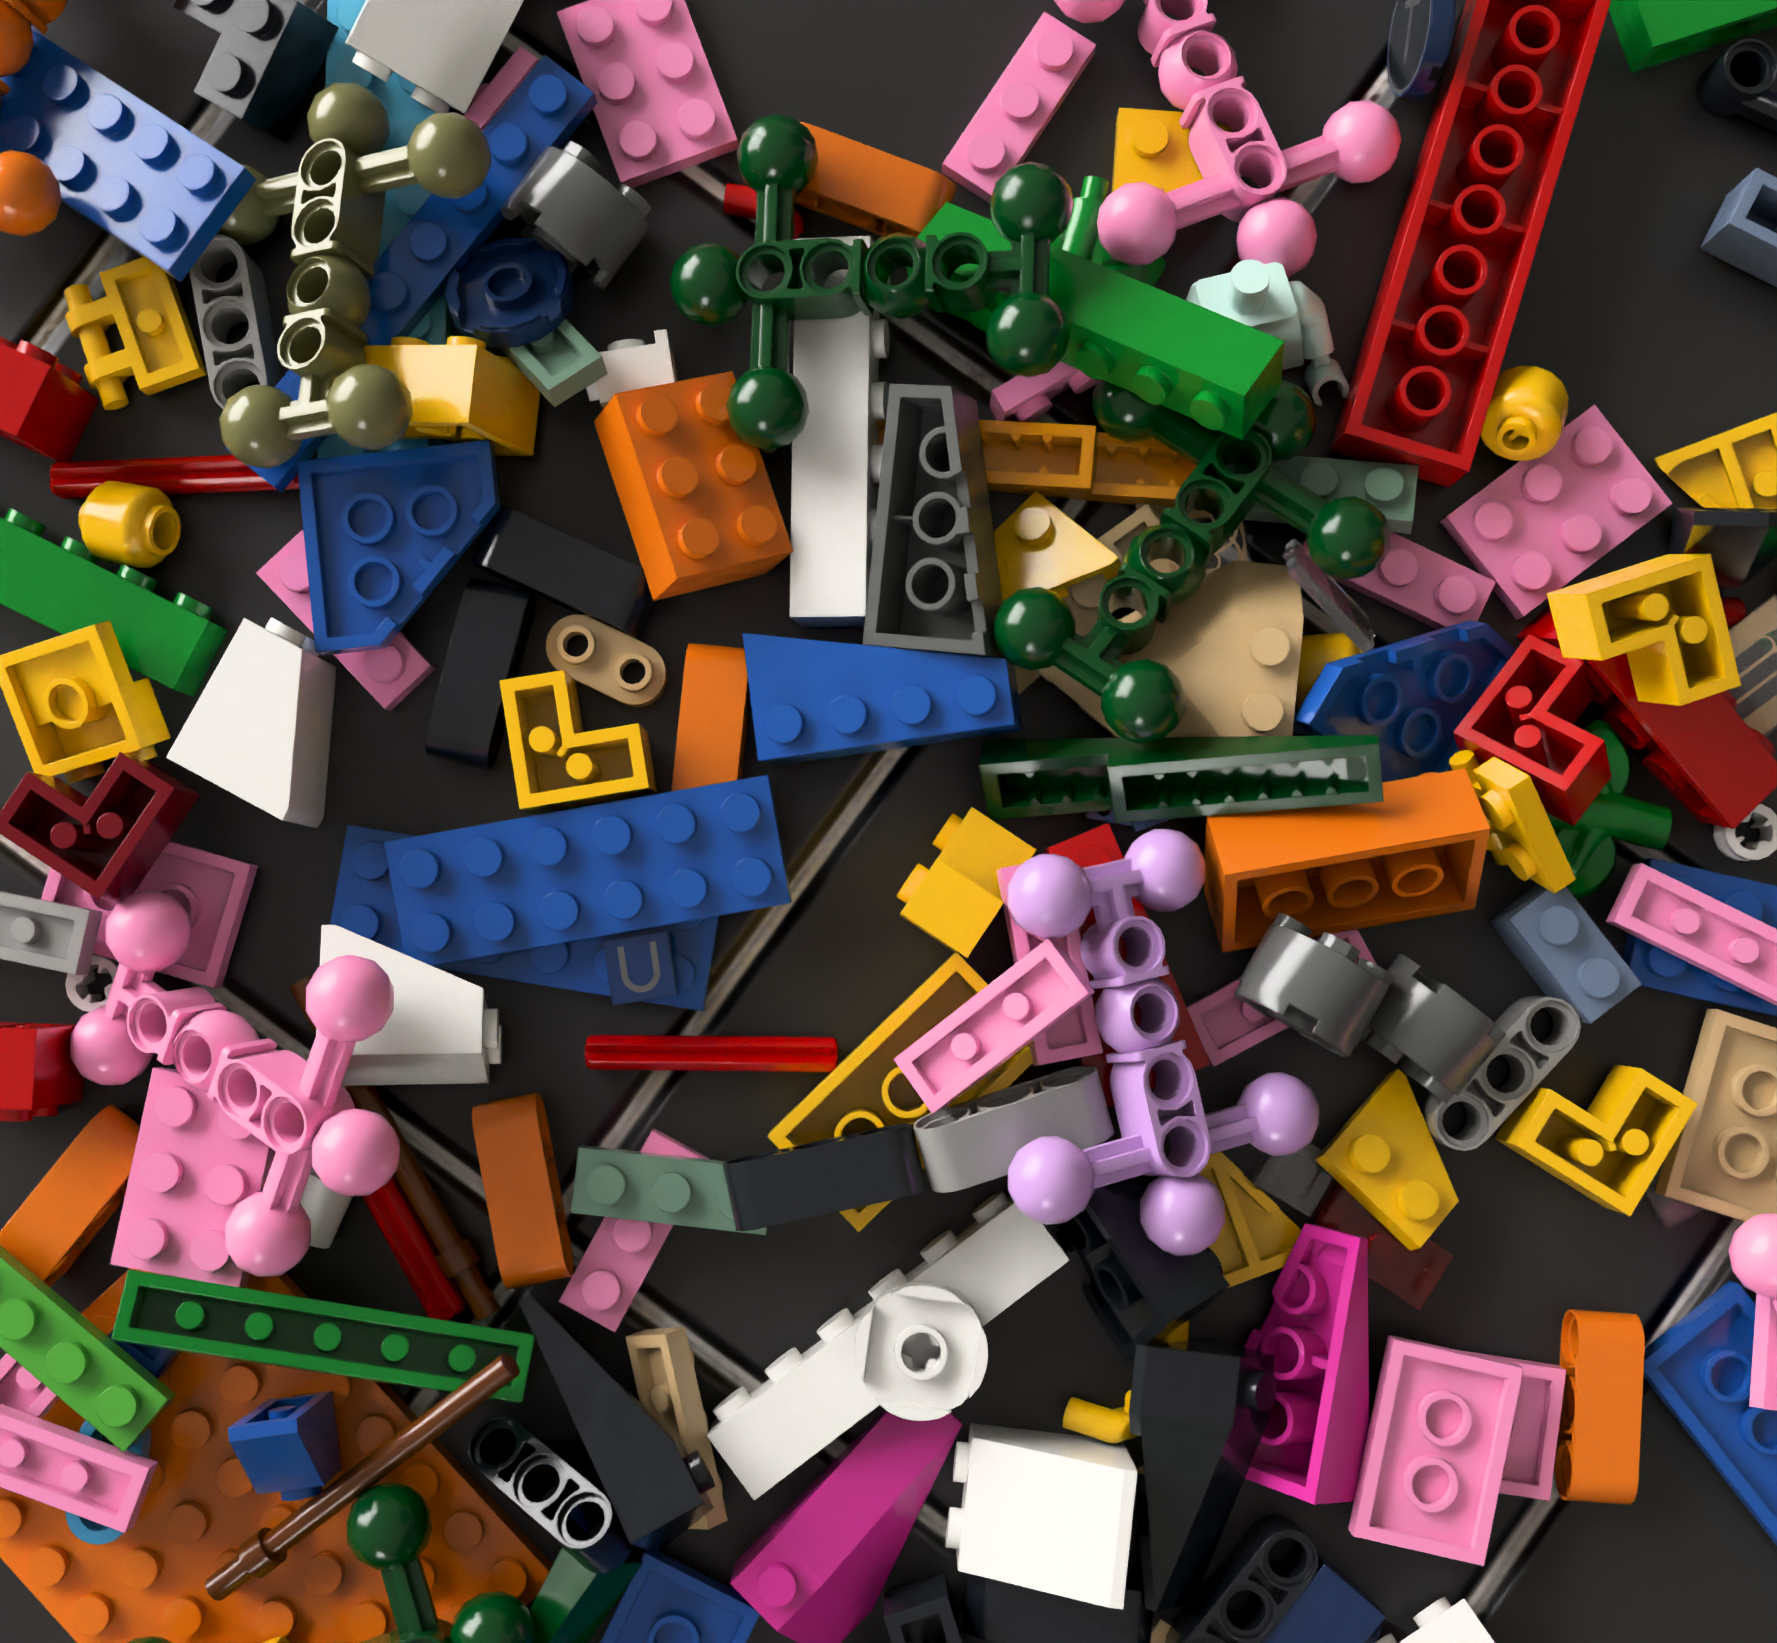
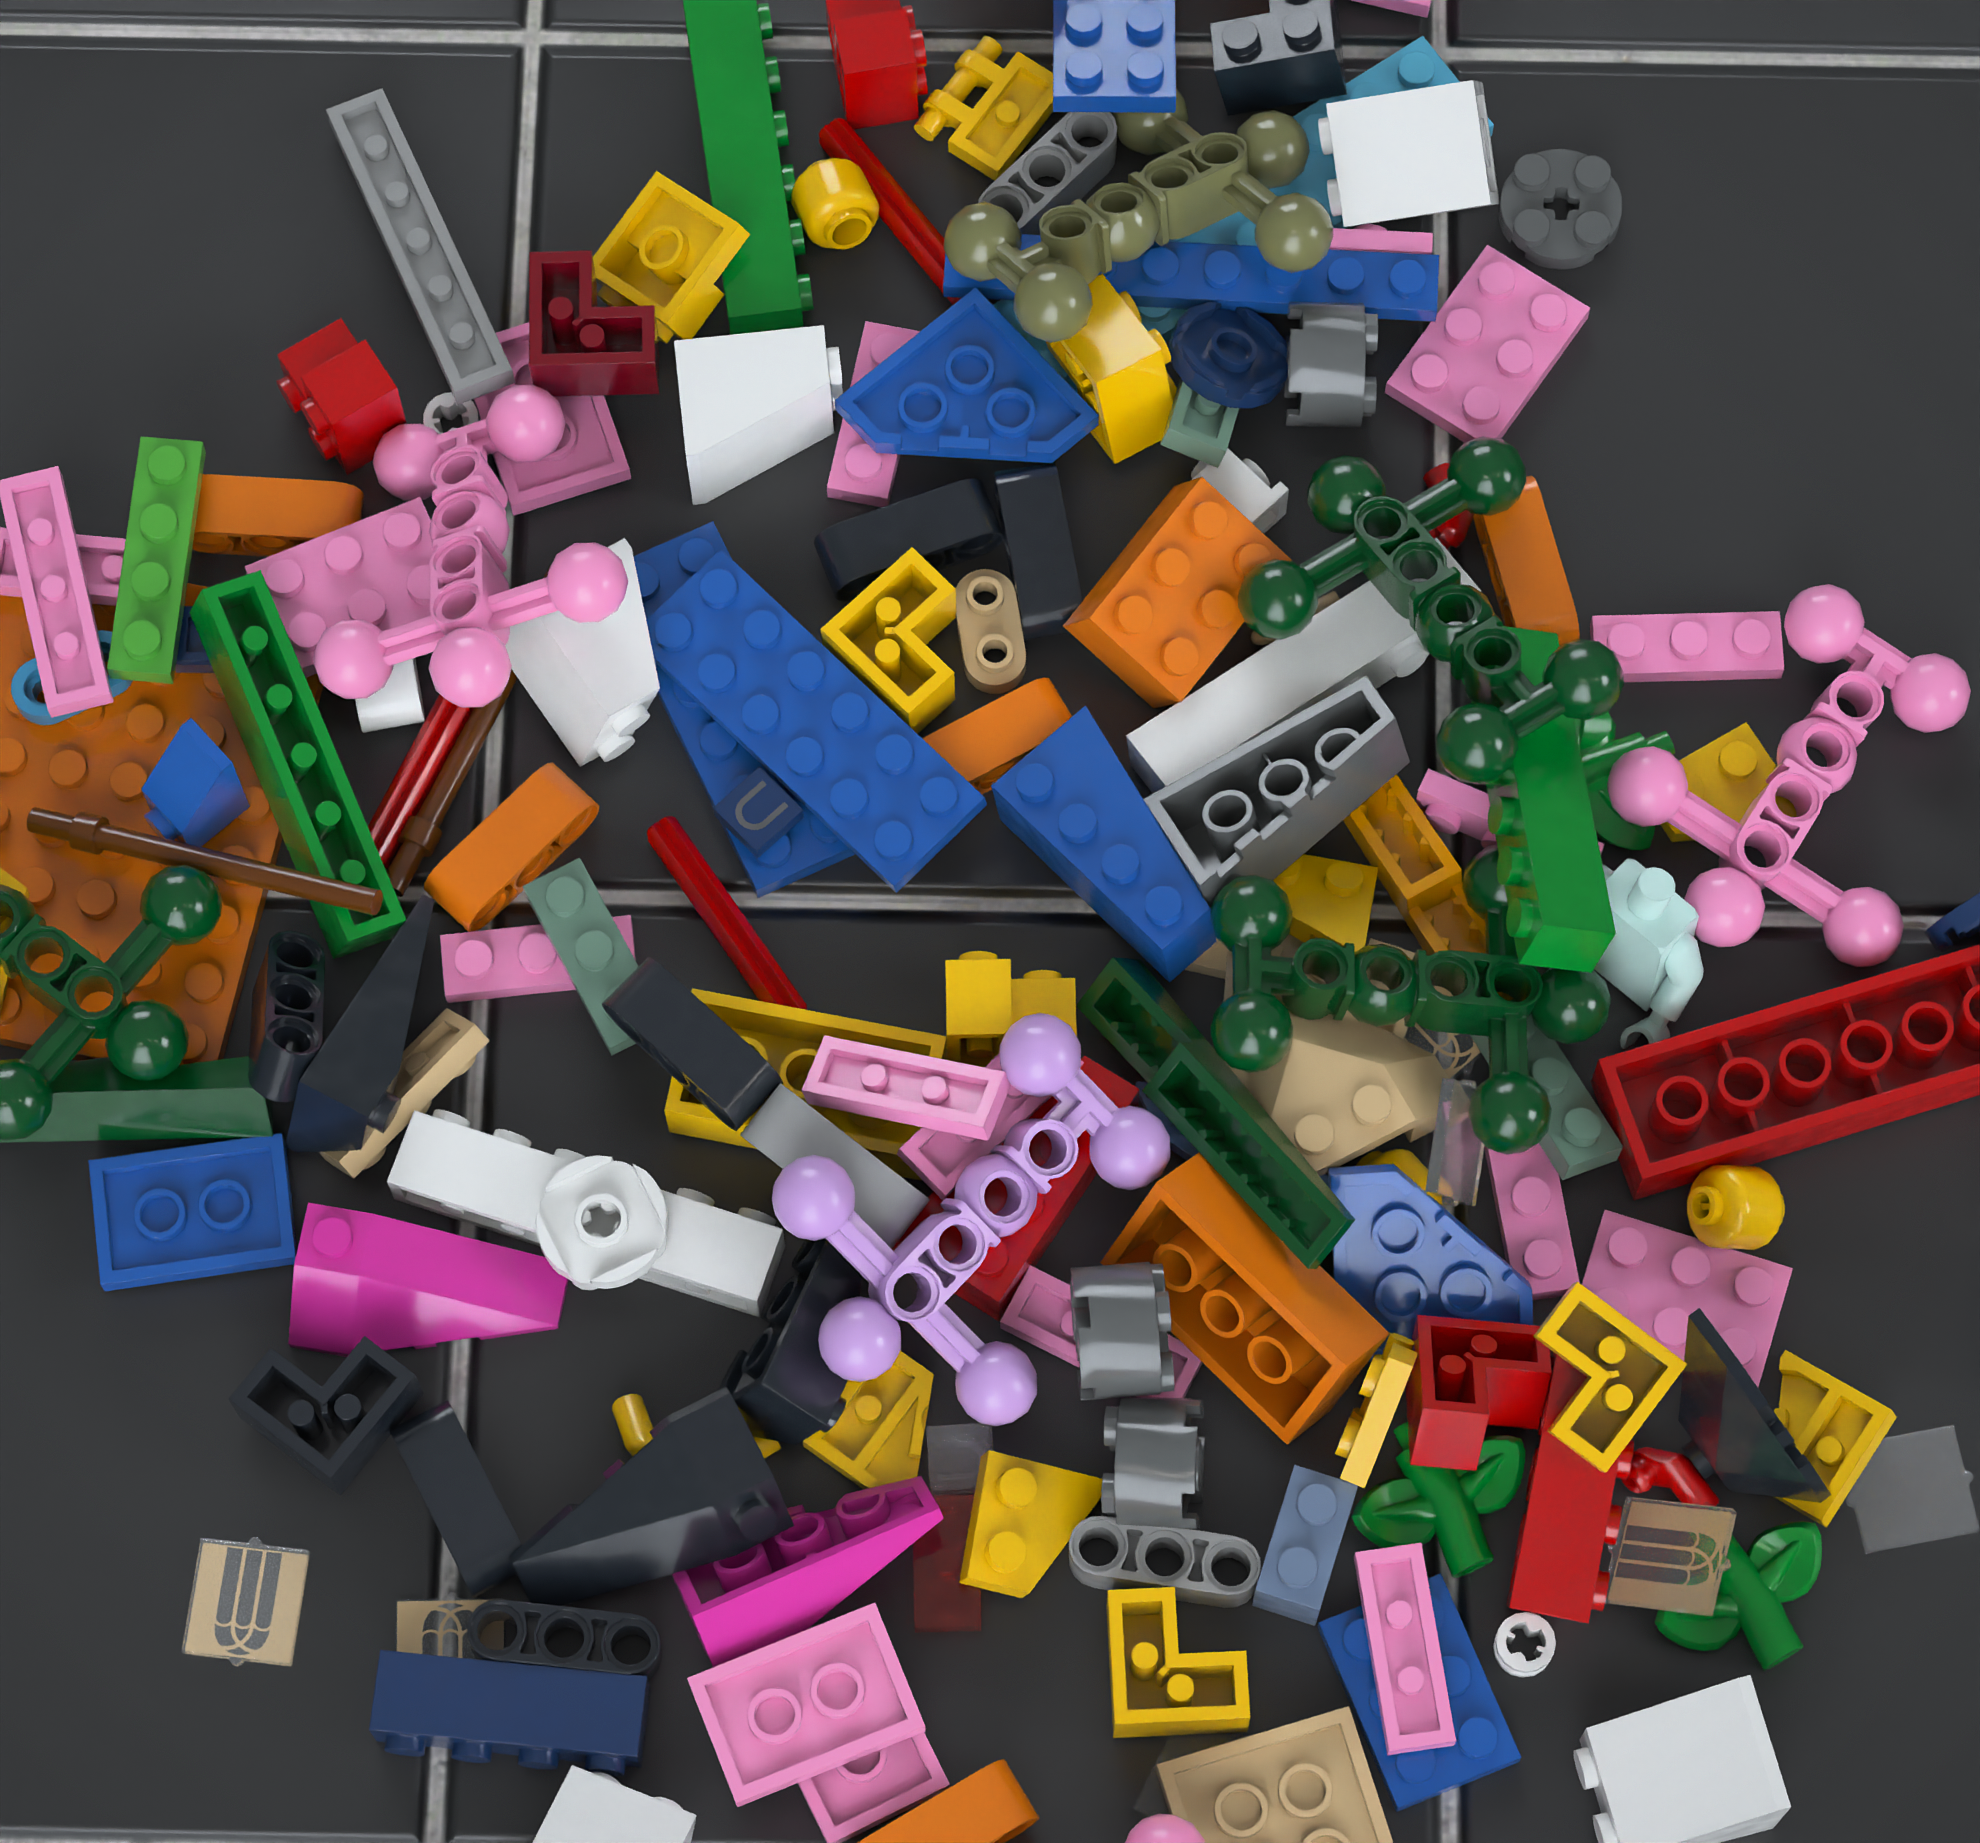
camera: 55 degrees right, 15 degrees down
(1044, 1512) = (534, 1422): white slope -> none

